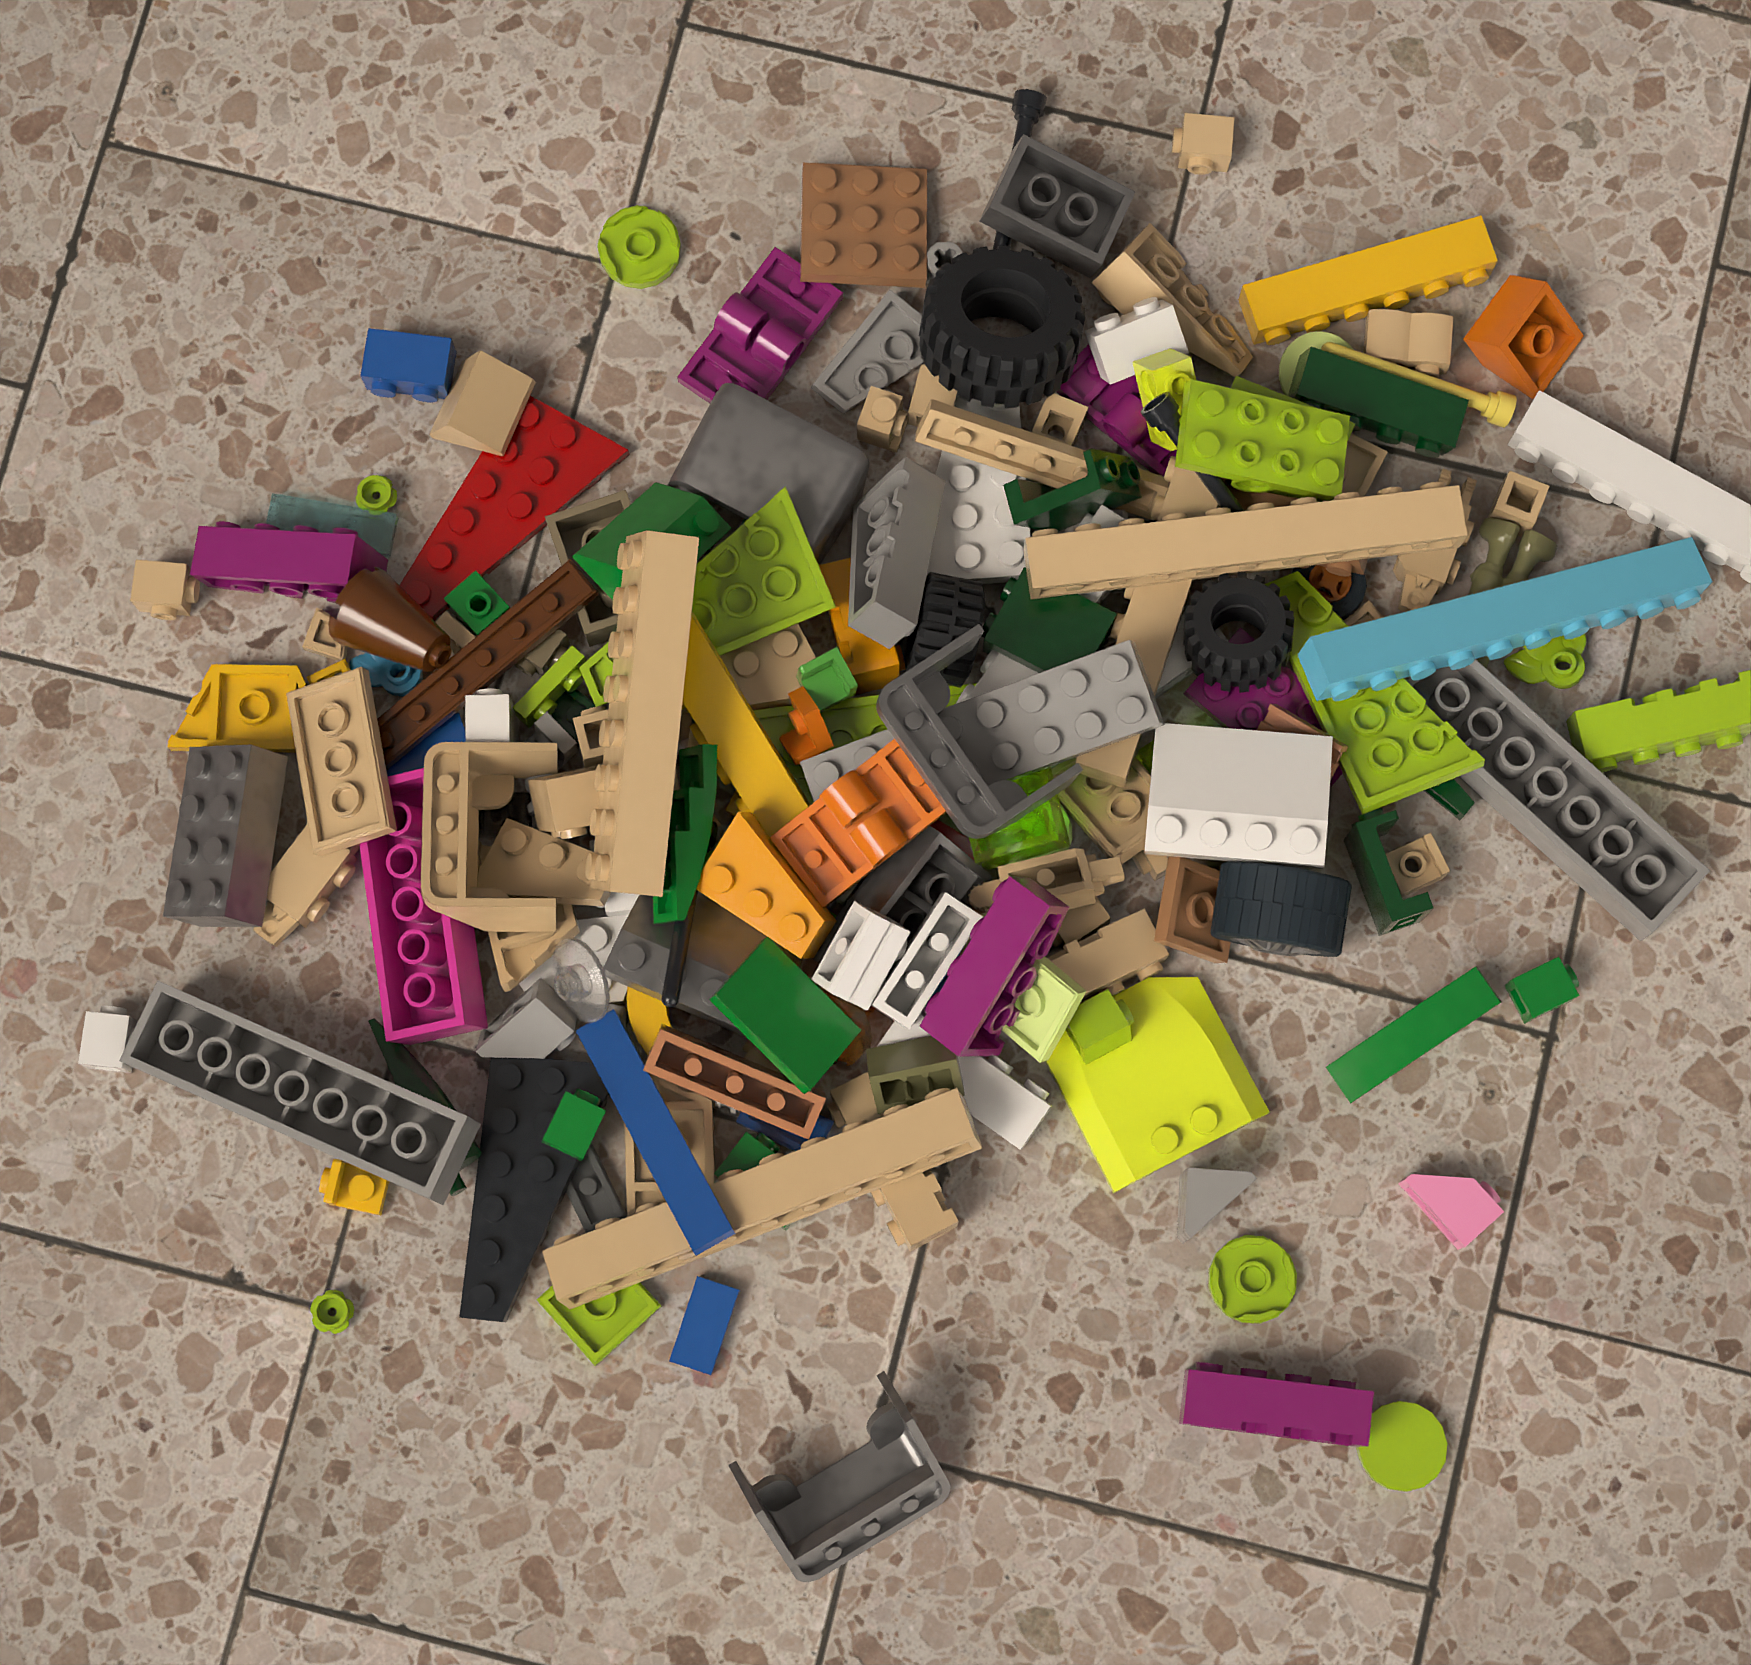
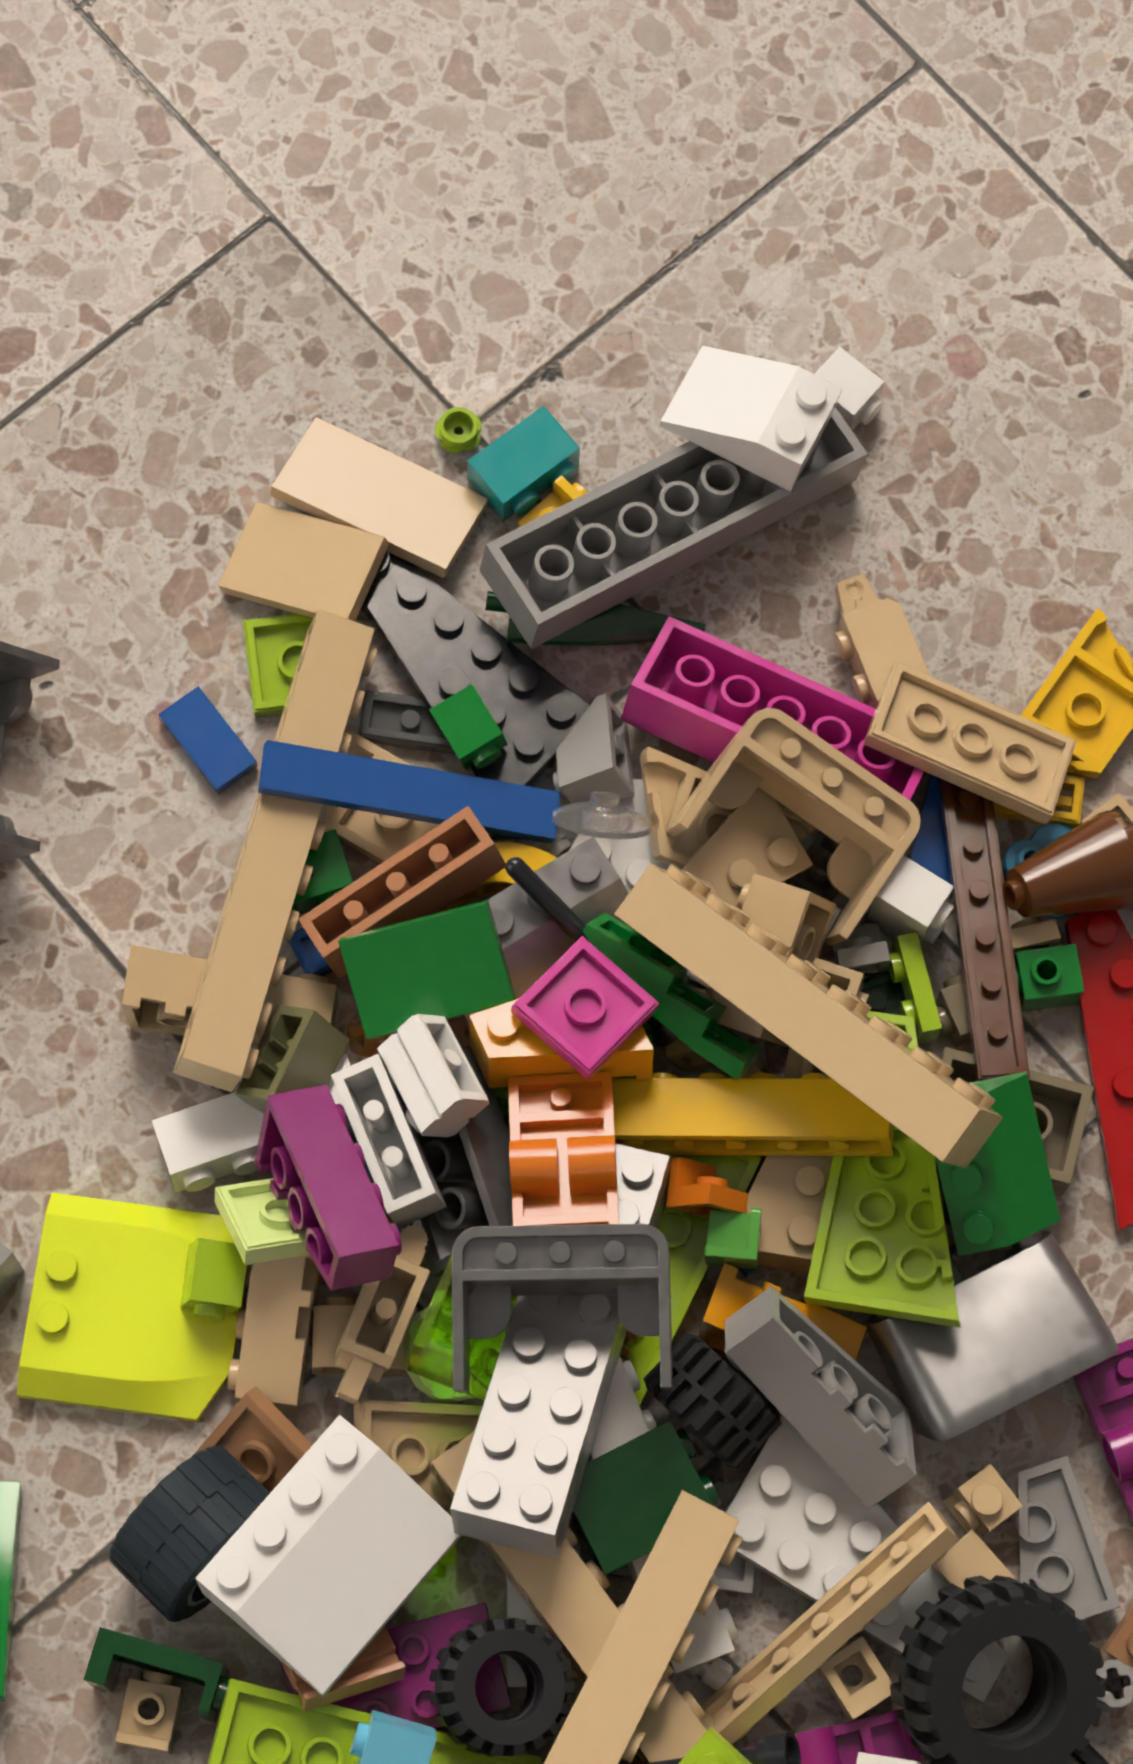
camera: 120 degrees right, 5 degrees down
(184, 1078) = (752, 412): none -> white slope
(225, 836) = (968, 599): flat silver brick -> none
(329, 1240) = (523, 464): none -> teal brick
(427, 1332) = (381, 493): none -> tan tile
(521, 1348) = (303, 563): none -> tan tile
(742, 876) = (584, 1007): none -> dark pink tile
(1109, 482) = (776, 1603): dark green panel -> none

